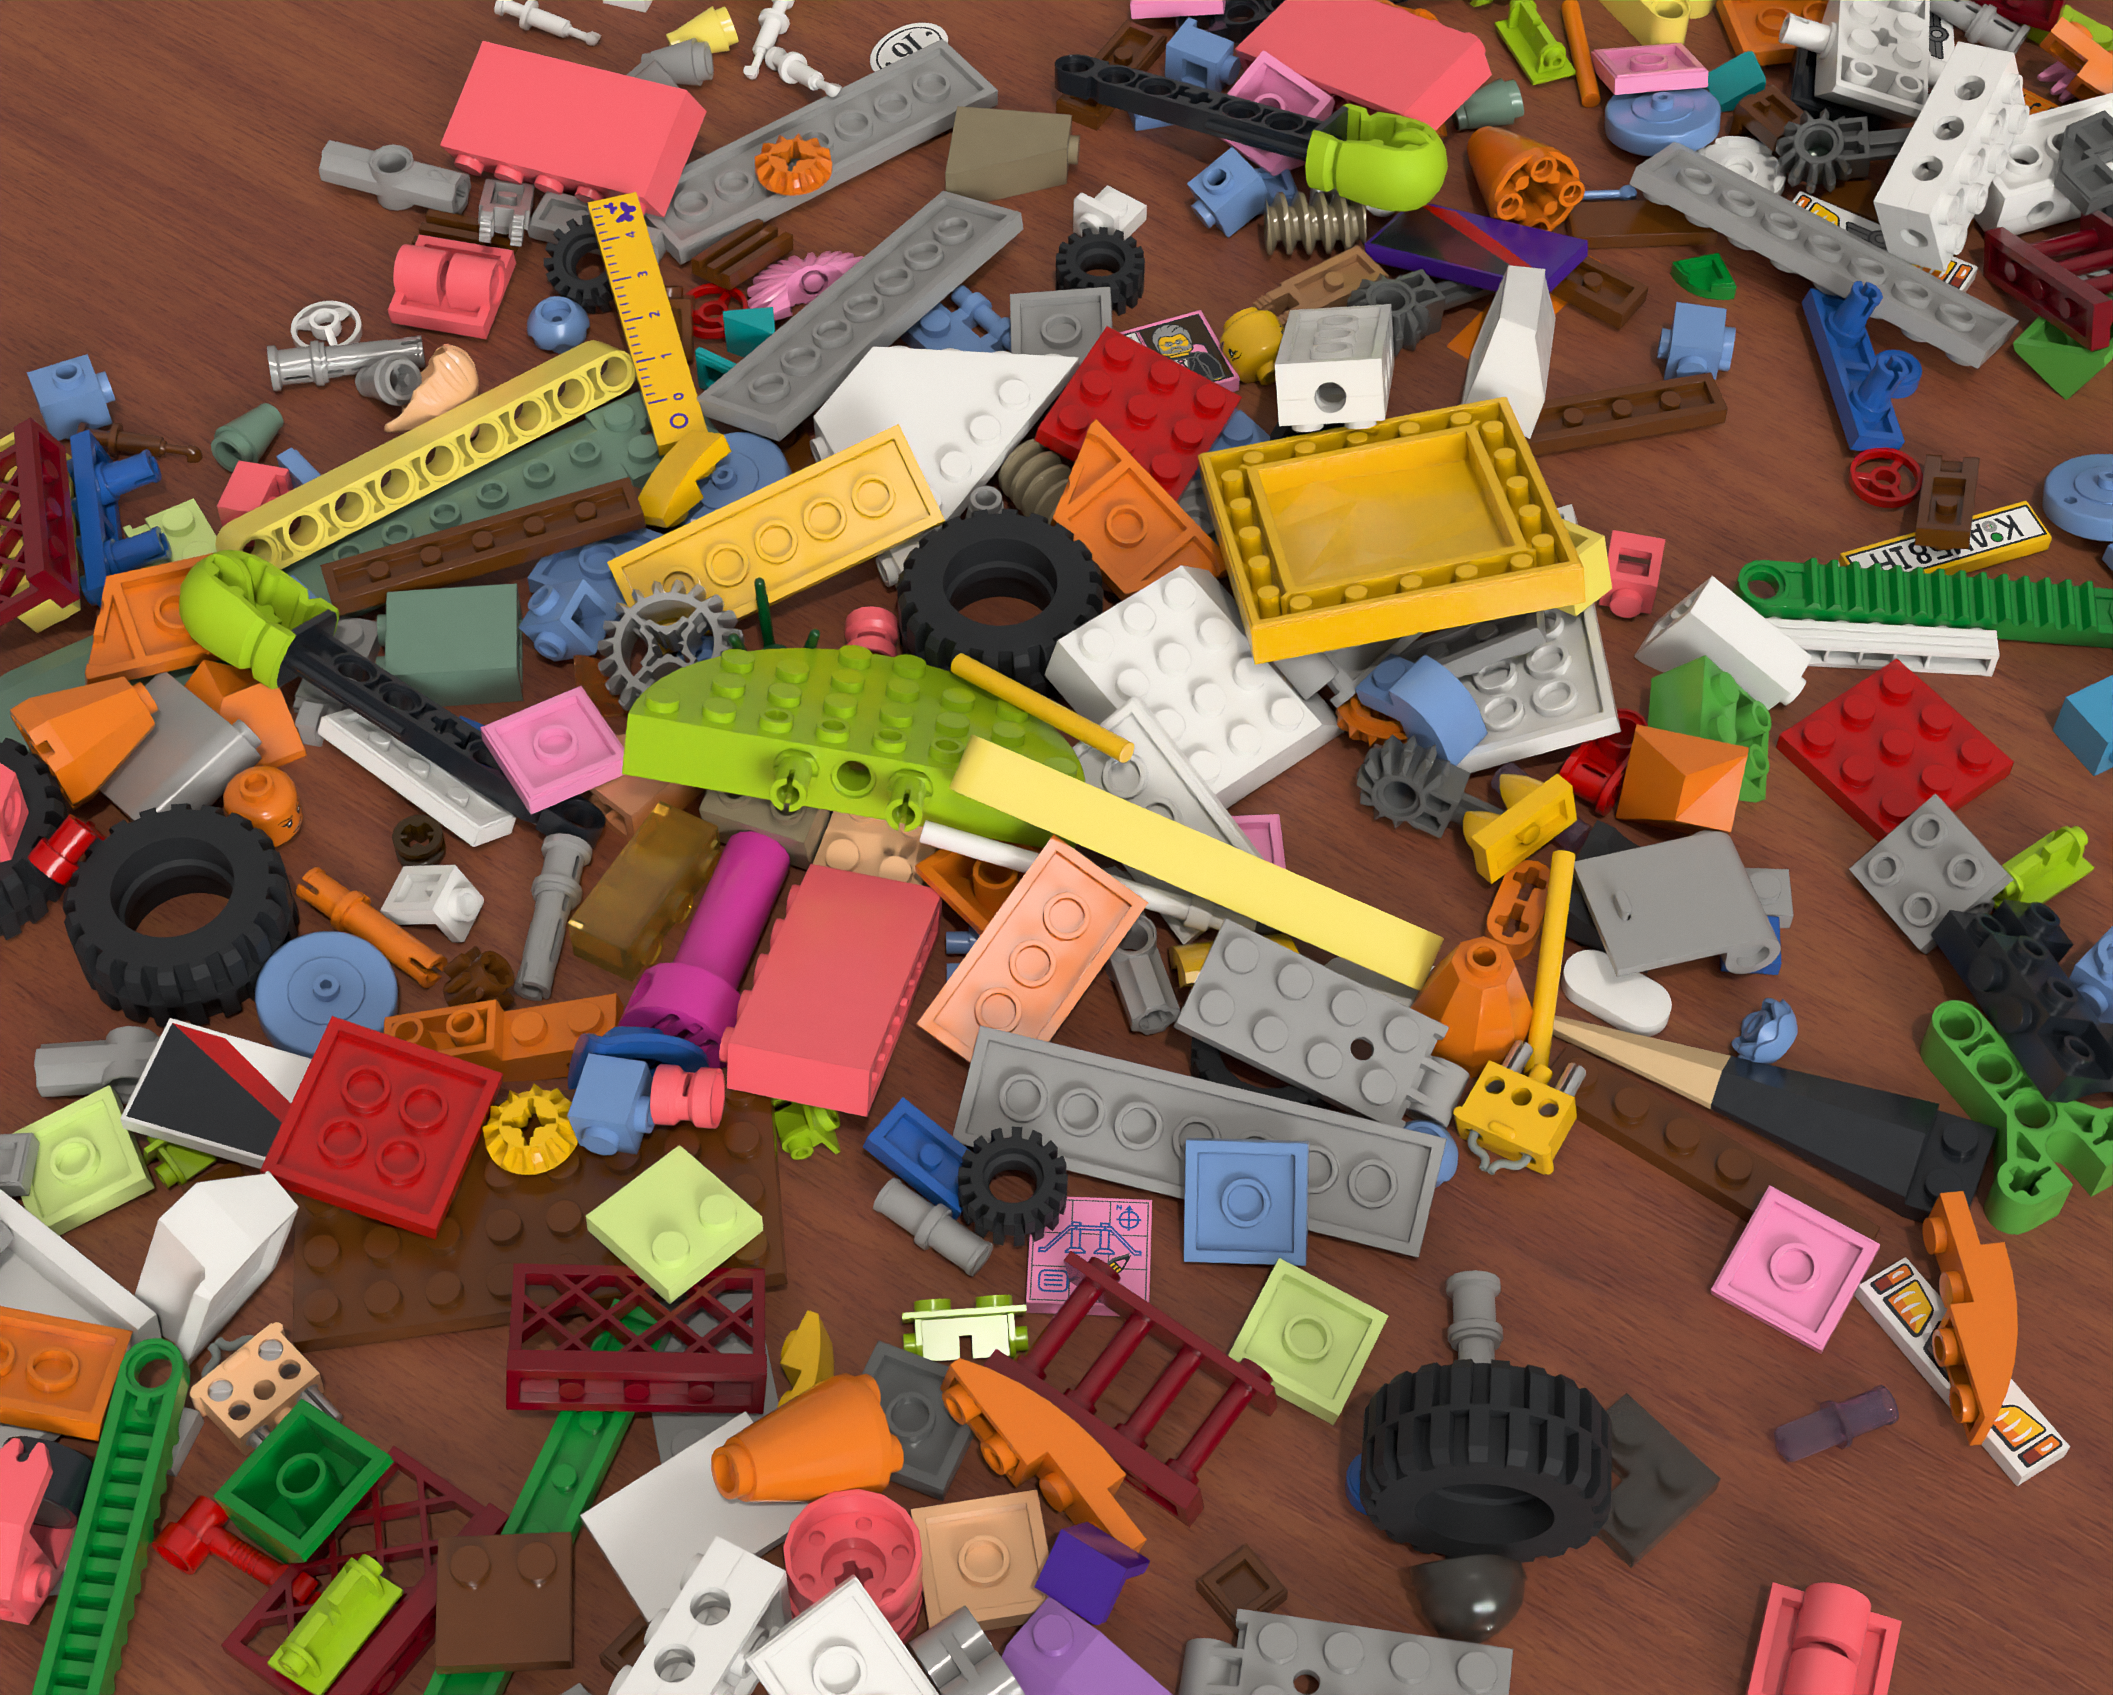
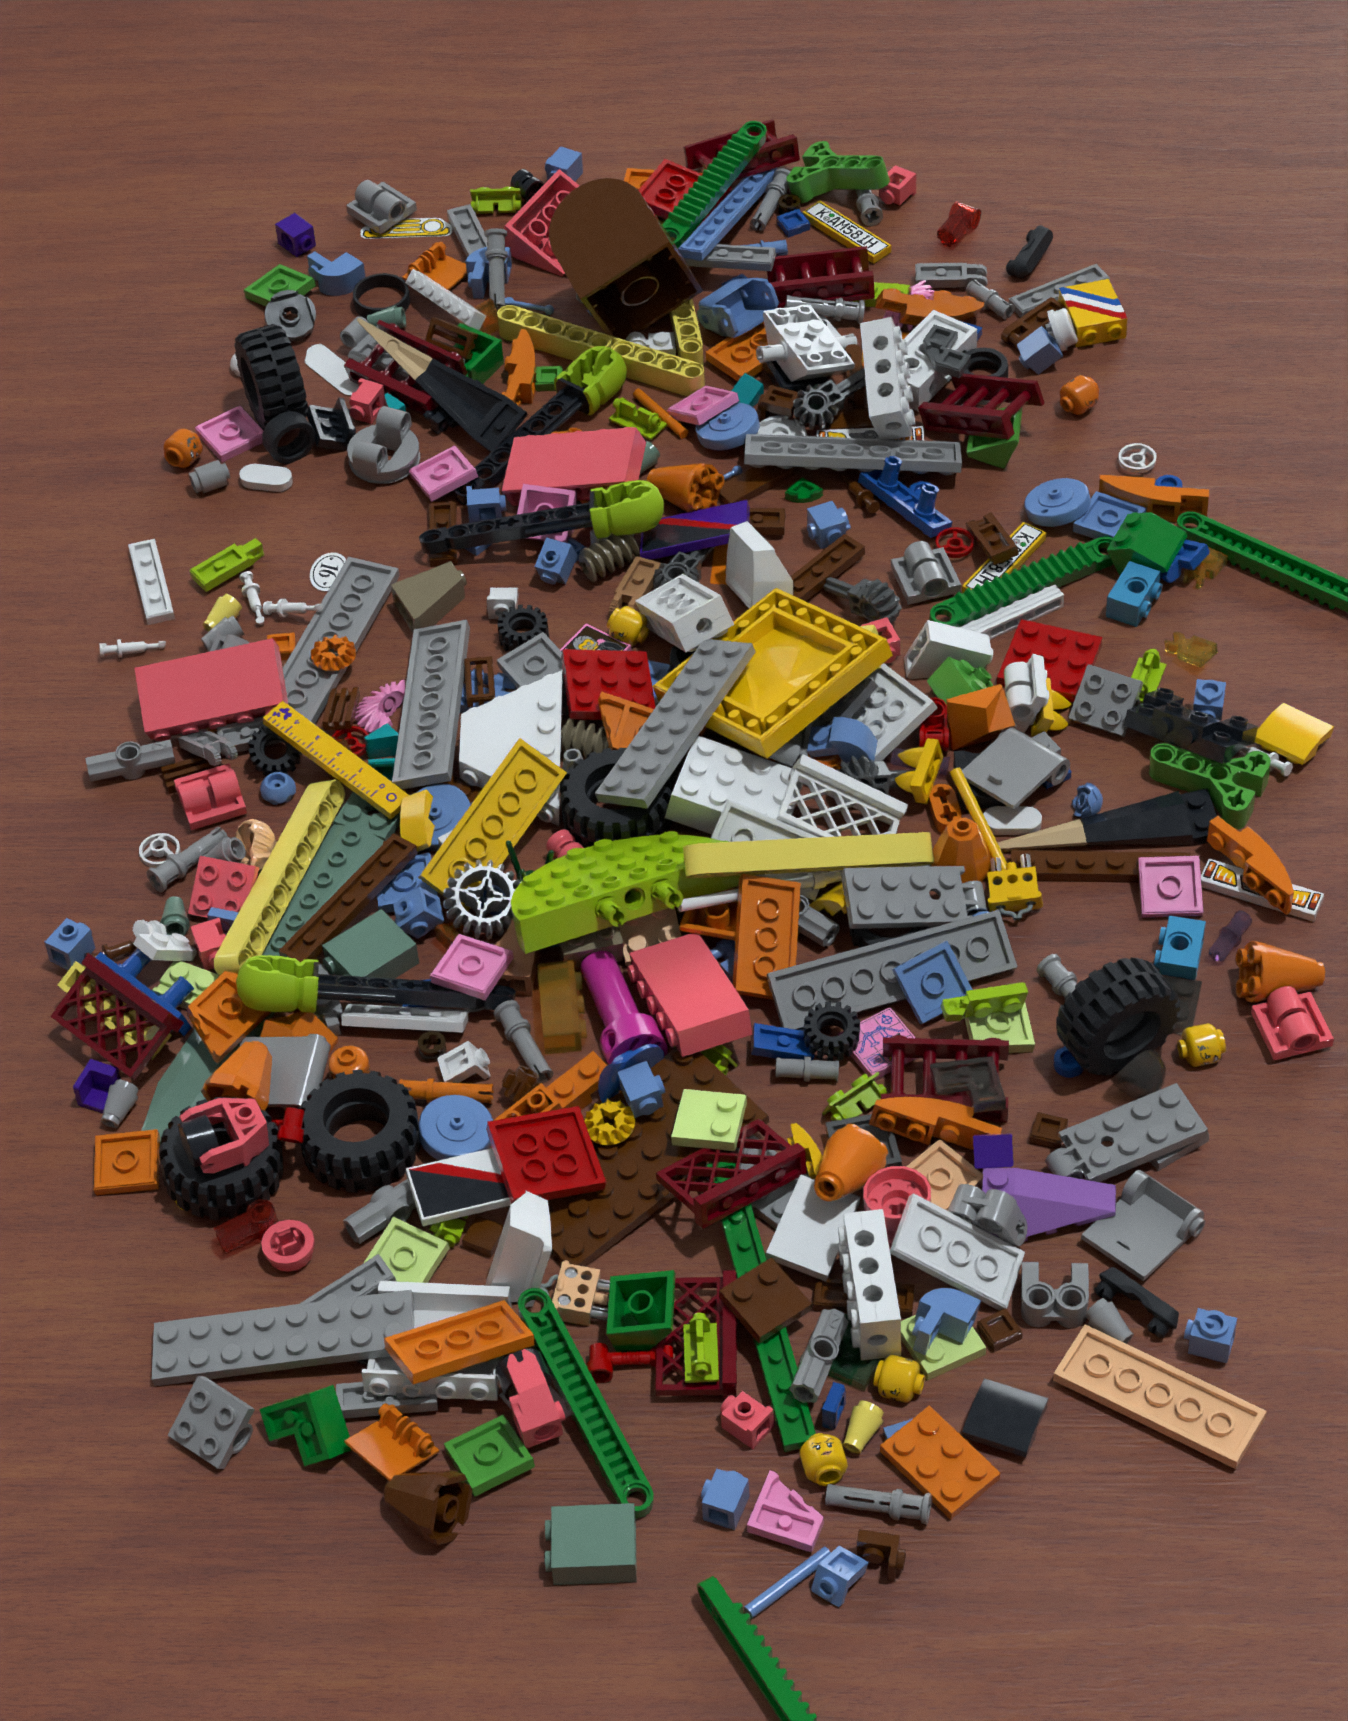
camera: 30 degrees left, 5 degrees down
(178, 469) = (157, 945): none -> white hinge
(338, 422) = (221, 885): none -> coral plate
(687, 1096) = (672, 1066): coral wheel -> none
(743, 118) = (286, 643): none -> orange tile
(998, 297) = (480, 697): none -> reddish brown tile
(1042, 708) = (685, 827): yellow bar -> none
(1163, 529) = (675, 723): none -> light grey plate
(1165, 1422) = (971, 1075): none -> clear smoke plate
(1294, 1290) = (985, 1001): none -> lime hinge
(1351, 782) = (846, 792): none -> white fence
(1627, 1599) = (1201, 1045): none -> yellow head
(1663, 495) = (867, 598): none -> dark grey gear
(1744, 1370) = (1181, 947): none -> dark azure brick
(1793, 331) = (863, 497): none -> reddish brown piece
(1793, 784) = (1026, 690): none -> white plate
(1794, 502) = (925, 573): none -> light grey plate
(1824, 814) = (1046, 717): none -> yellow tile
(1862, 1541) = (1268, 968): none -> orange cone

